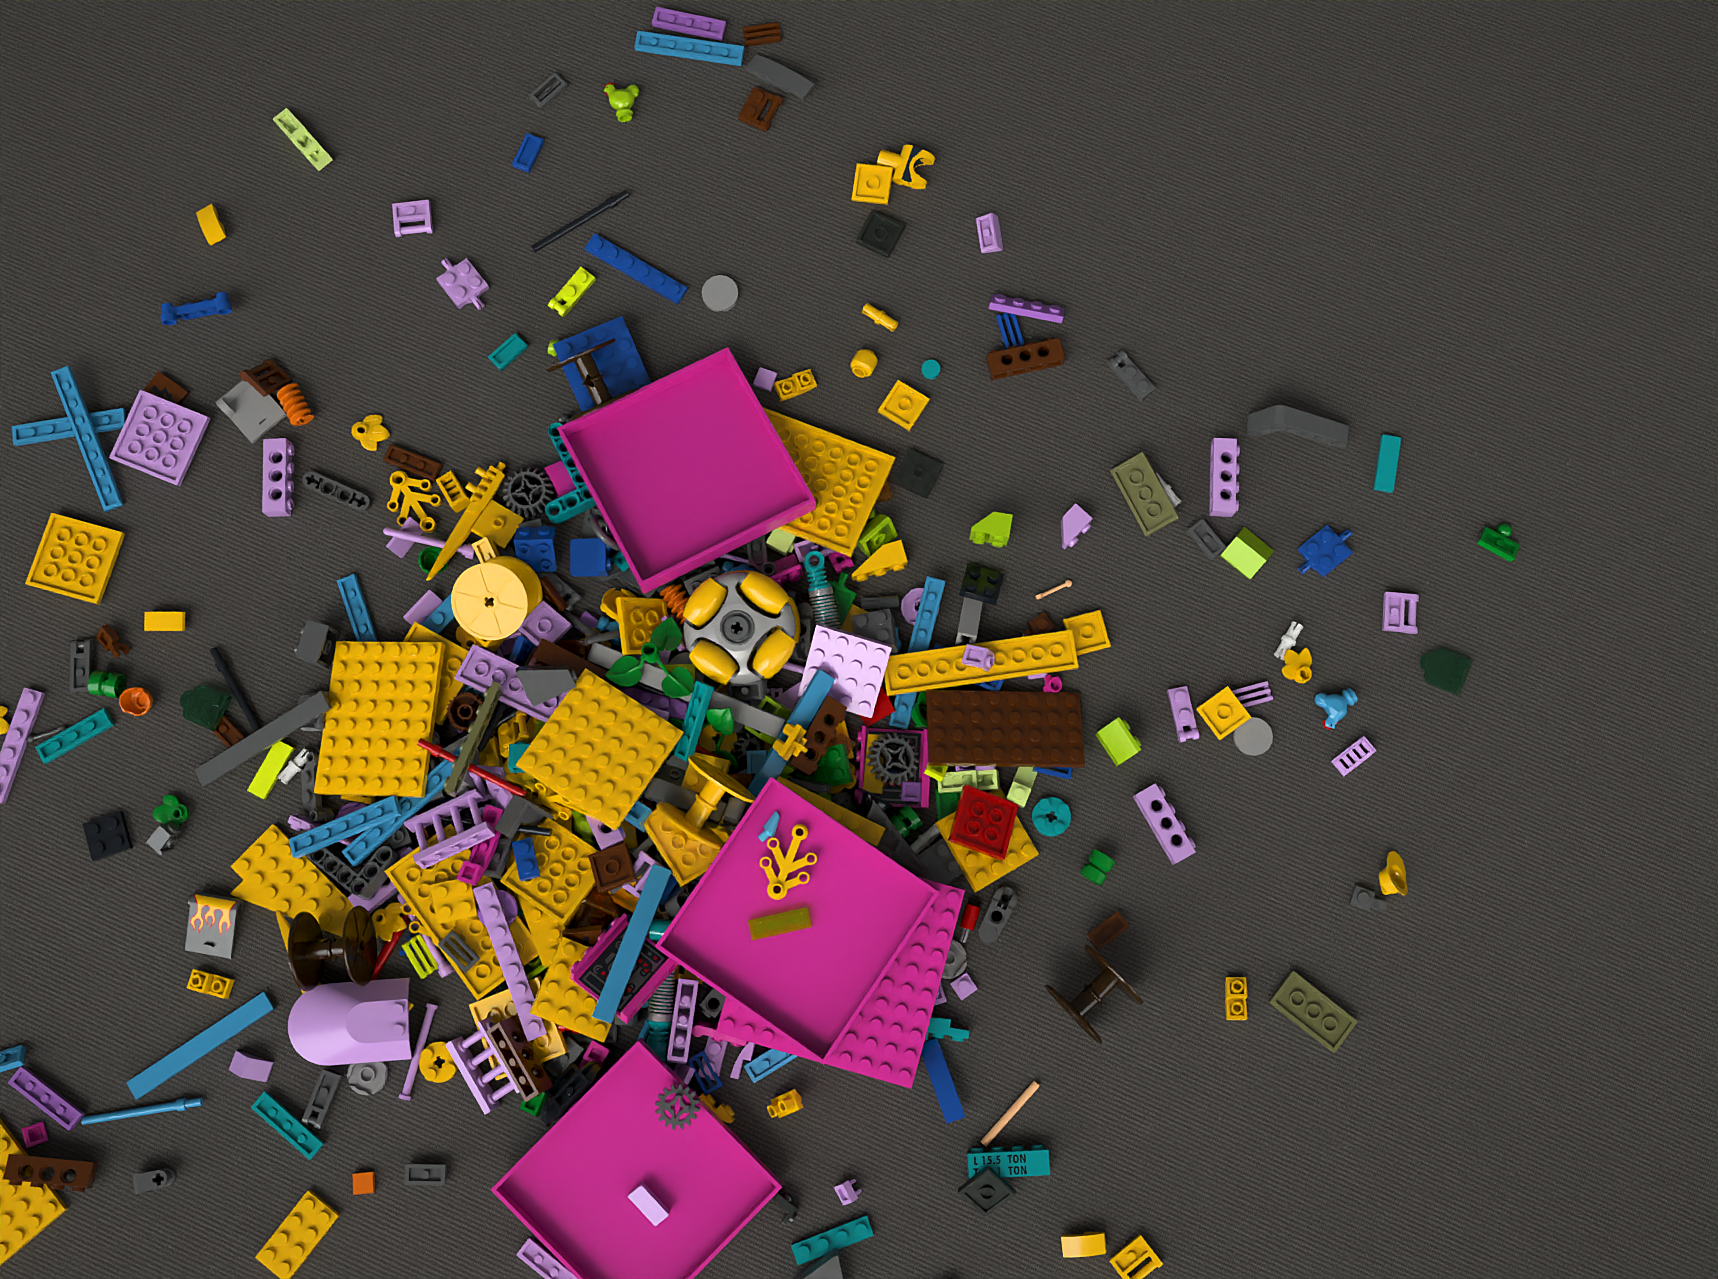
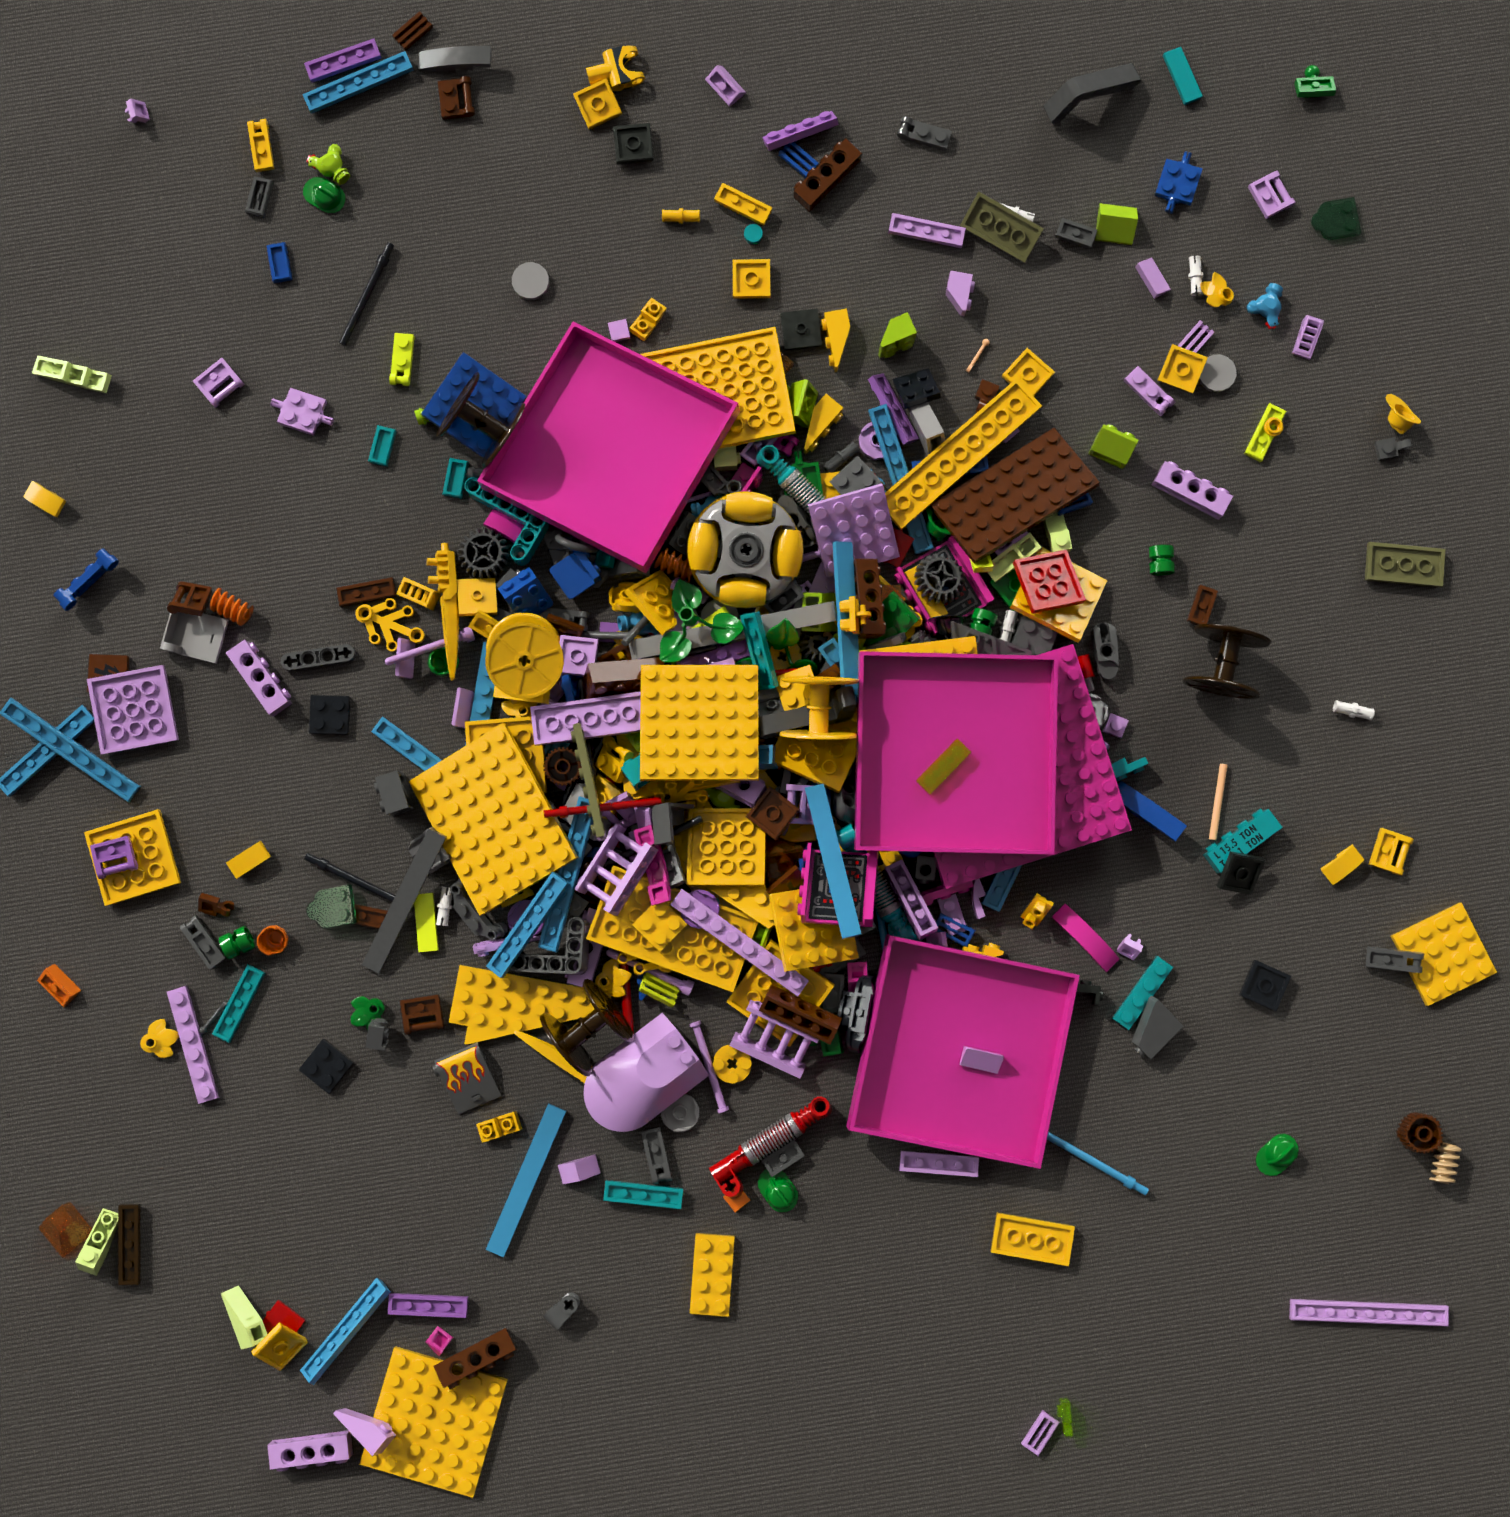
camera: 35 degrees left, 5 degrees up
(61, 542) = (110, 851): none -> medium lavender plate
(179, 1105) = (543, 1237): dark azure bar -> none
(216, 838) = (419, 1008): none -> reddish brown plate
(313, 544) = (329, 714): none -> black plate
(373, 432) = (313, 586): yellow plate -> none
(403, 1201) = (778, 1191): none -> green piece
(433, 1152) = (759, 1146): none -> red piece
(470, 963) = (708, 966): dark grey tile -> none
(526, 859) = (696, 853): blue plate -> none
(546, 682) = (617, 696): dark grey slope -> none
(549, 414) = (455, 478): none -> teal tile
(577, 51) = (260, 145): none -> yellow plate
(601, 121) = (324, 194): none -> green piece
(636, 269) = (443, 305): blue plate -> none
(685, 1106) = (964, 962): dark grey gear -> none
(770, 827) = (884, 694): medium azure bar -> none
(786, 865) = (918, 715): yellow plant -> none
(814, 1157) = (1086, 937): none -> dark pink slope
(863, 363) = (694, 263): yellow head -> none
(911, 791) = (970, 596): medium lavender tile -> none
(938, 339) = (743, 204): none -> yellow plate
(946, 496) = (837, 328): none -> yellow slope
(950, 598) = (886, 395): none -> medium lavender plate
(978, 657) = (956, 449): lavender bracket -> none
(1041, 822) = (1101, 533): teal plate -> none
(1056, 684) = (1027, 434): dark pink plate -> none
(1079, 457) = (927, 230): none -> lavender plate
(1183, 1111) = (1353, 710): none -> white pin
(1218, 505) = (1046, 166): lavender brick -> none
(1235, 998) = (1337, 594): yellow slope -> none
(1249, 618) = (1152, 277): none -> lavender slope
(1262, 815) = (1260, 440): none -> neon yellow tile
(1276, 810) = (1273, 421): none -> yellow plate

